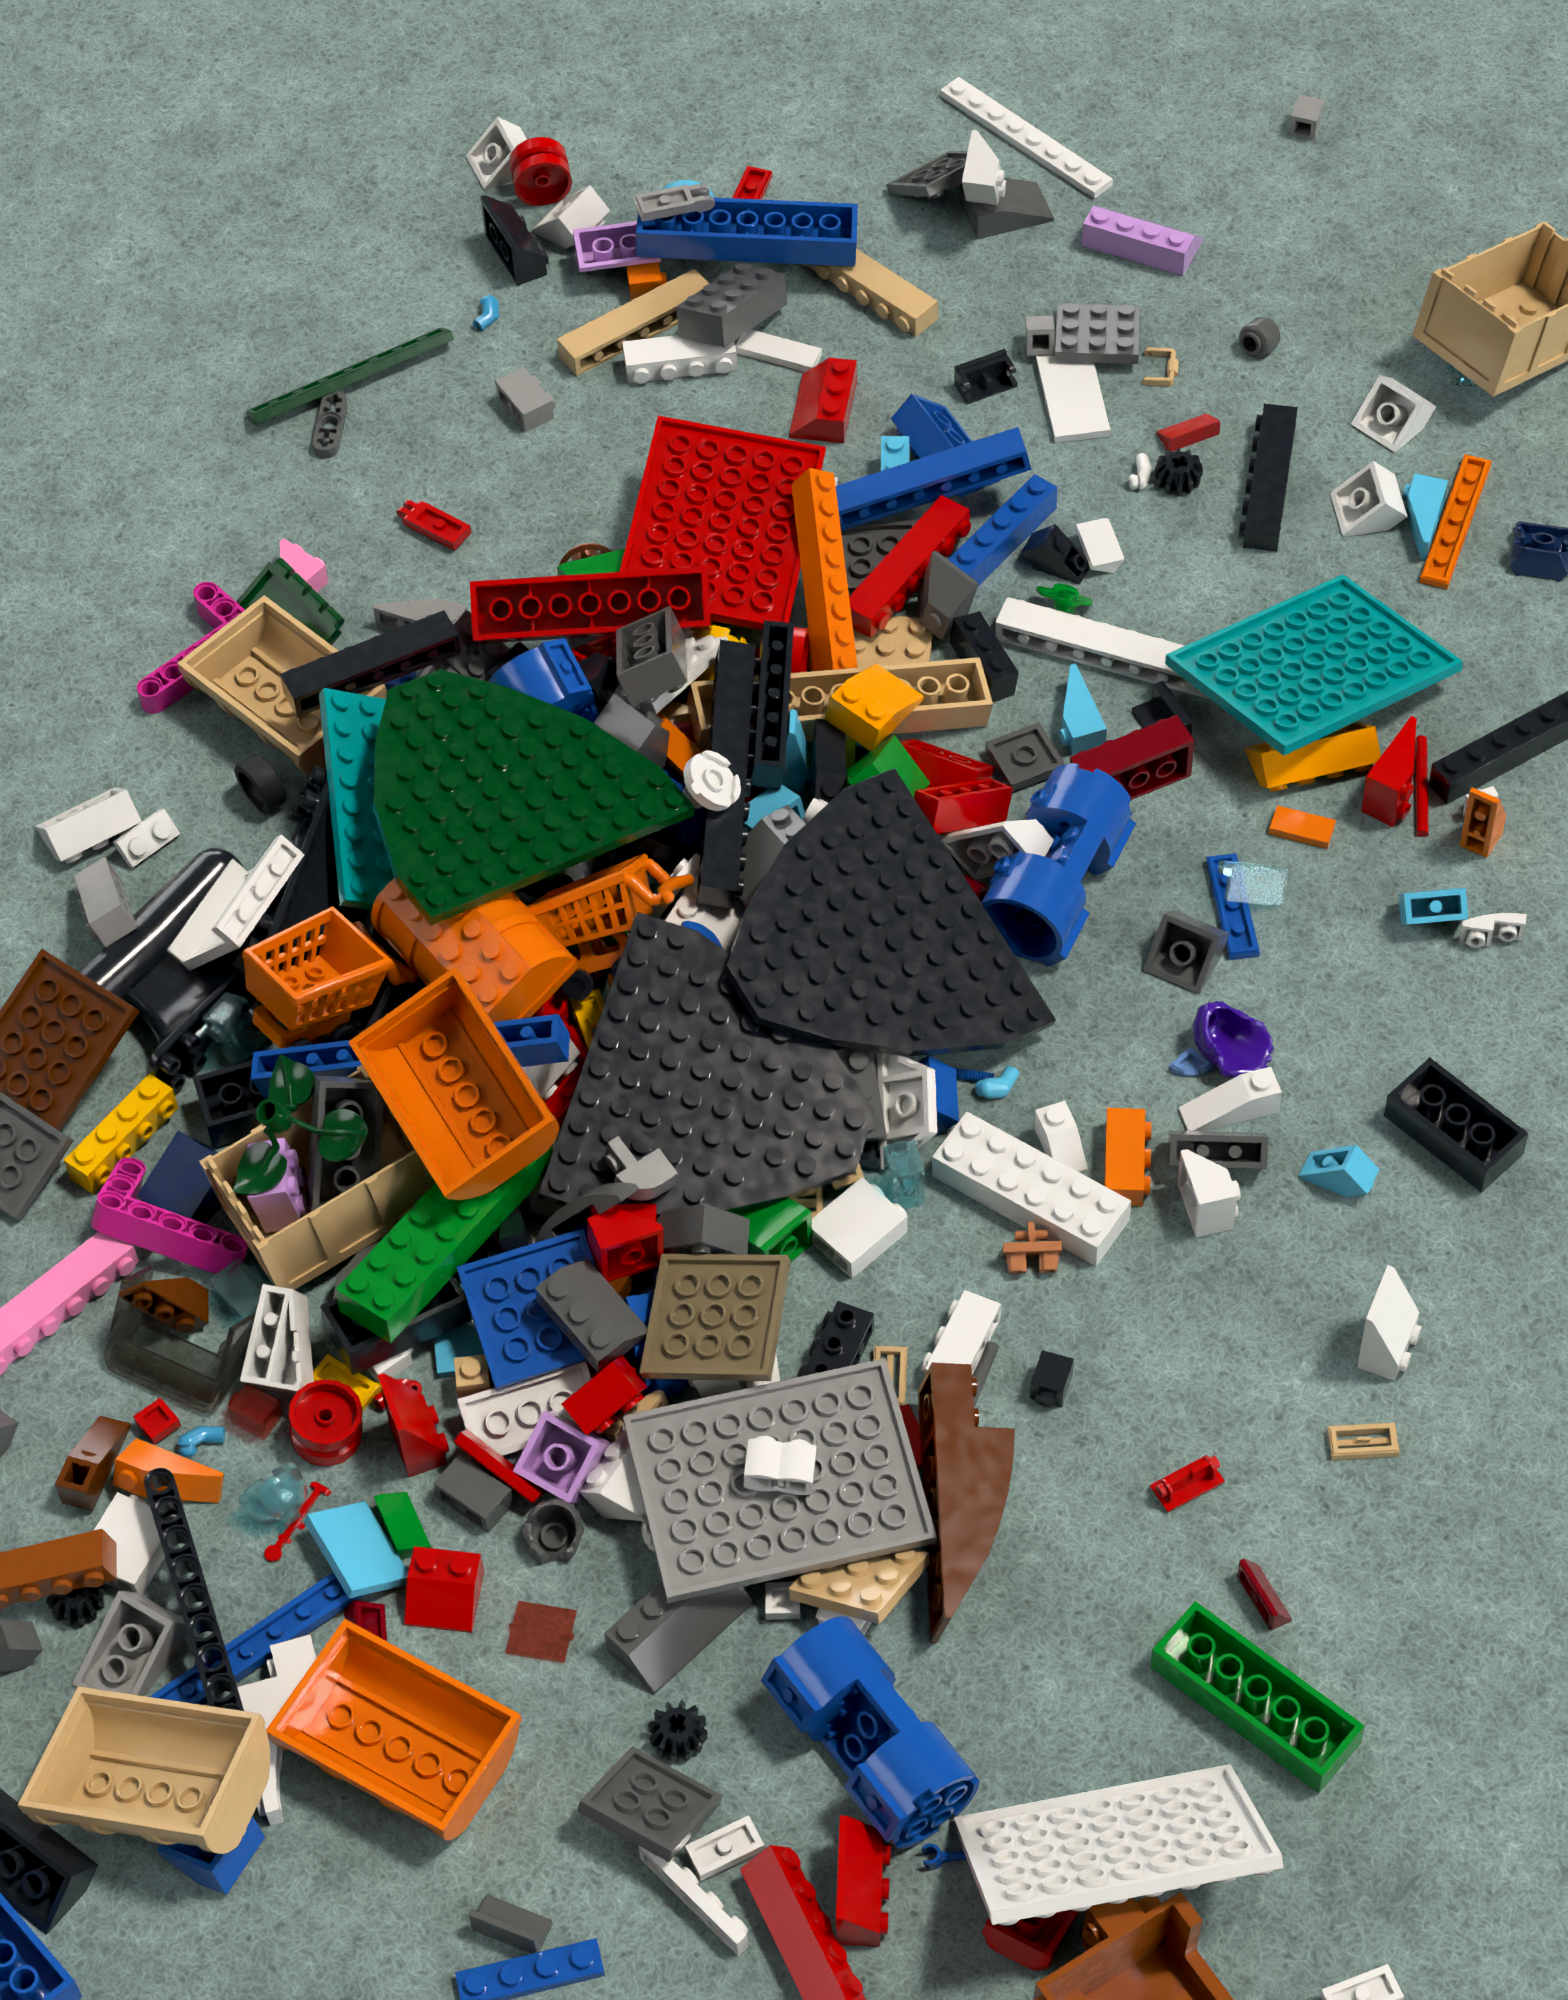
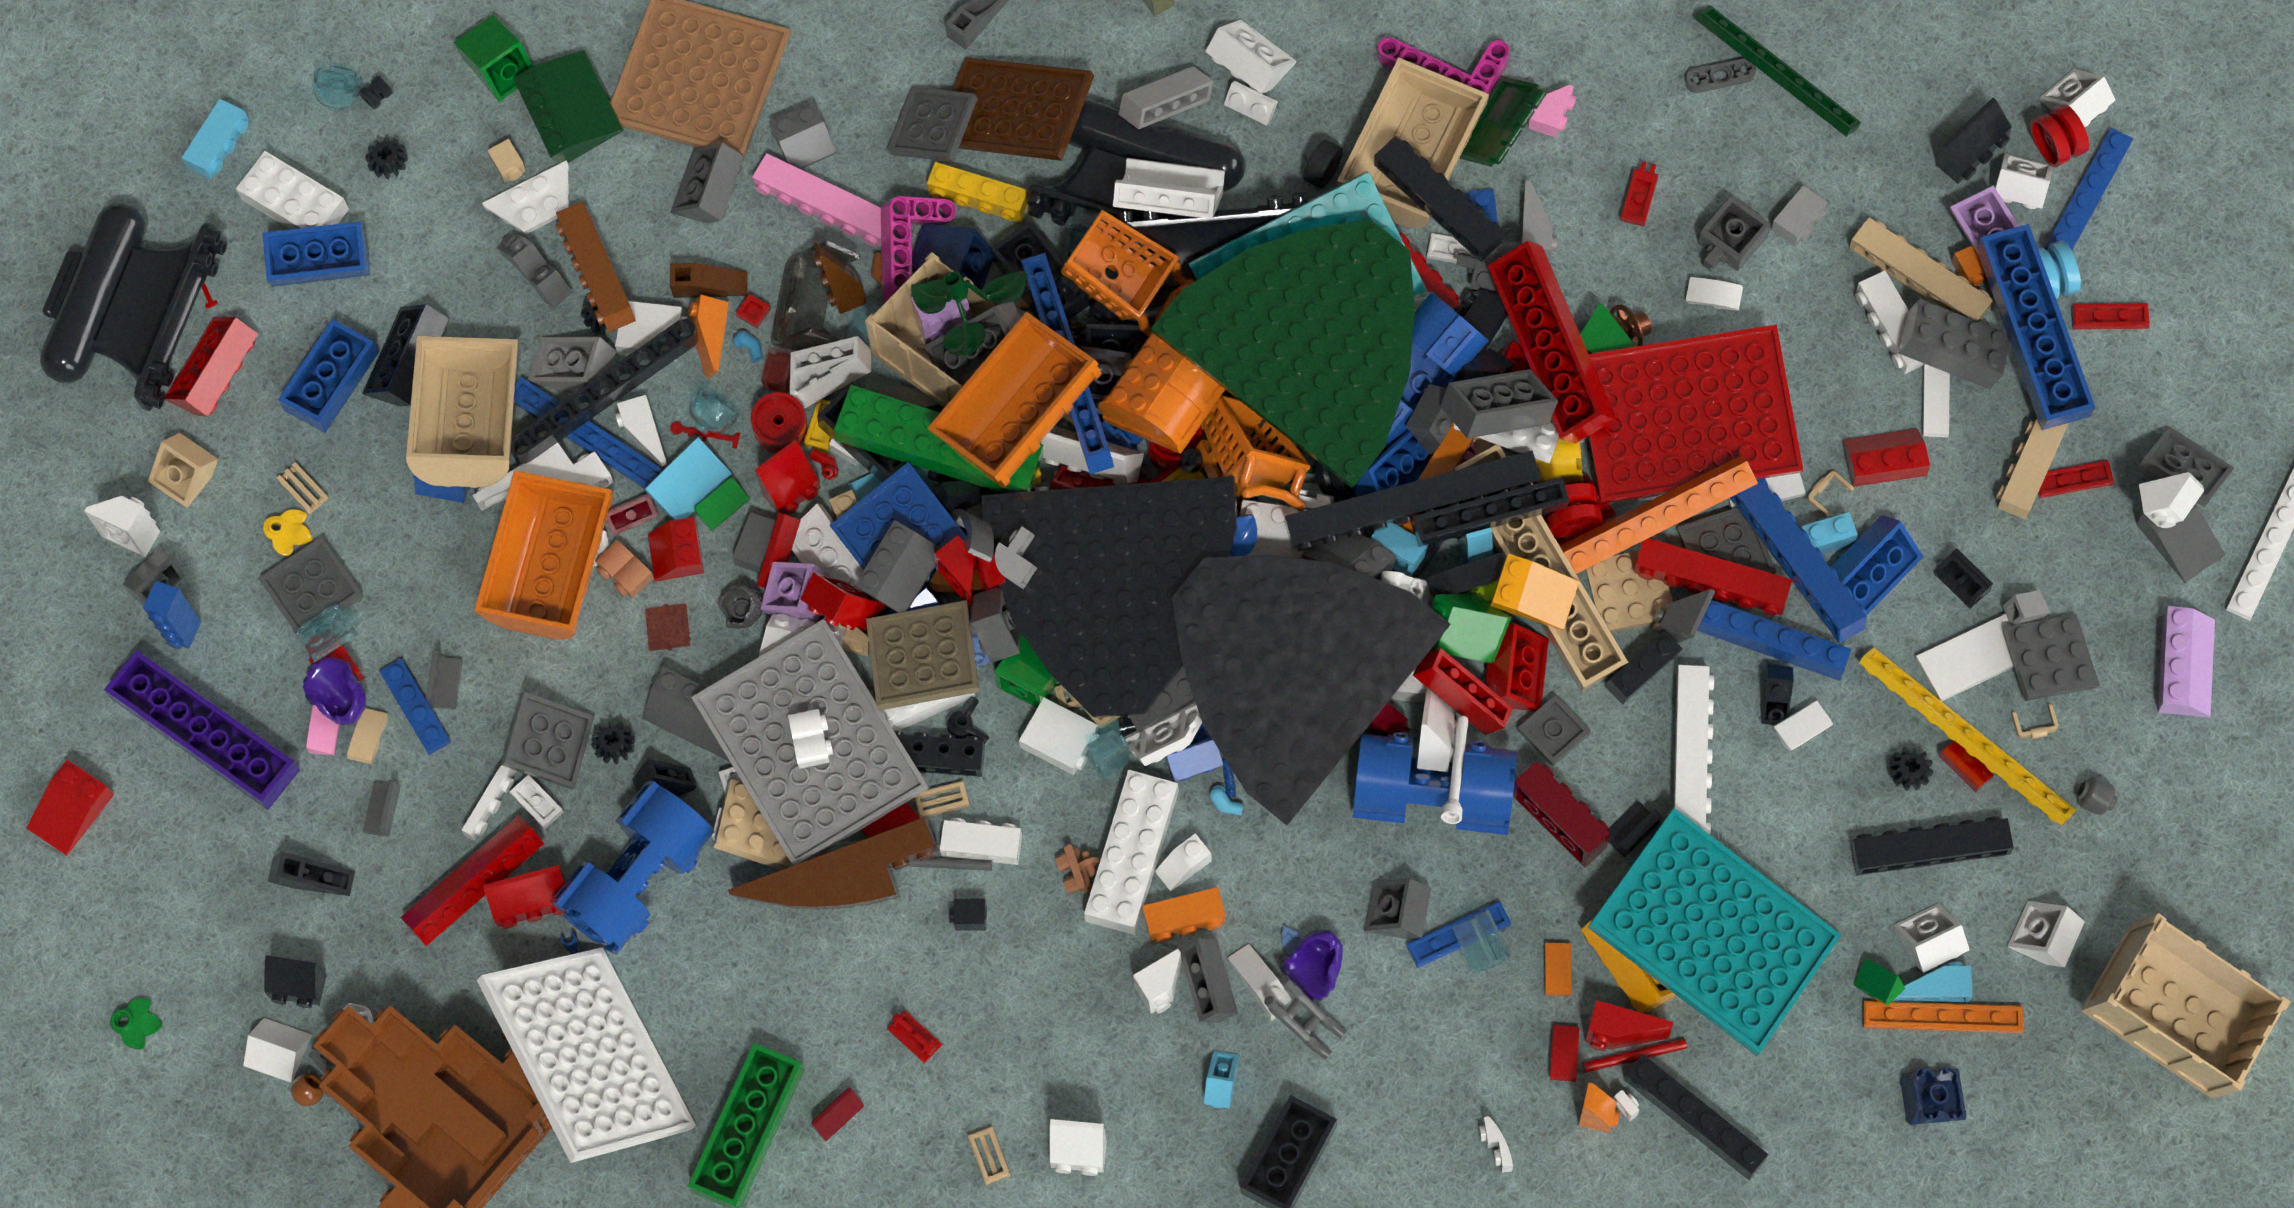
camera: 75 degrees right, 15 degrees up
(169, 1270) = (876, 270): none -> dark orange arm
(258, 1587) = (641, 428): none -> white slope
(451, 1652) = (624, 570): none -> nougat brick
(490, 312) = (1892, 154): dark azure arm -> none
(521, 454) = (1720, 237): none -> dark grey hinge
(577, 491) = (1714, 293): none -> white slope
(600, 172) = (2091, 188): none -> blue plate
(673, 201) = (2023, 253): light grey hinge -> none
(710, 781) = (1377, 489): white tile -> none
(745, 1683) = (669, 776): none -> black slope
(802, 1327) = (961, 724): none -> black piece
(835, 468) = (1821, 485): none -> tan piece
(912, 261) = (2076, 479): none -> red tile
(1064, 596) = (1733, 713): green plate -> none
(1081, 722) = (1609, 760): medium azure slope -> none
(1116, 825) = (1452, 809): none -> white piece
(1144, 470) = (1904, 739): white arm -> none
(1149, 424) = (1967, 736): none -> yellow plate
(1284, 1073) = (1317, 1016): none -> dark grey piece
(1407, 844) = (1564, 1053): none -> red slope
(1408, 552) = (1878, 982): none -> green slope
(1433, 906) = (1500, 1090): medium azure brick -> none

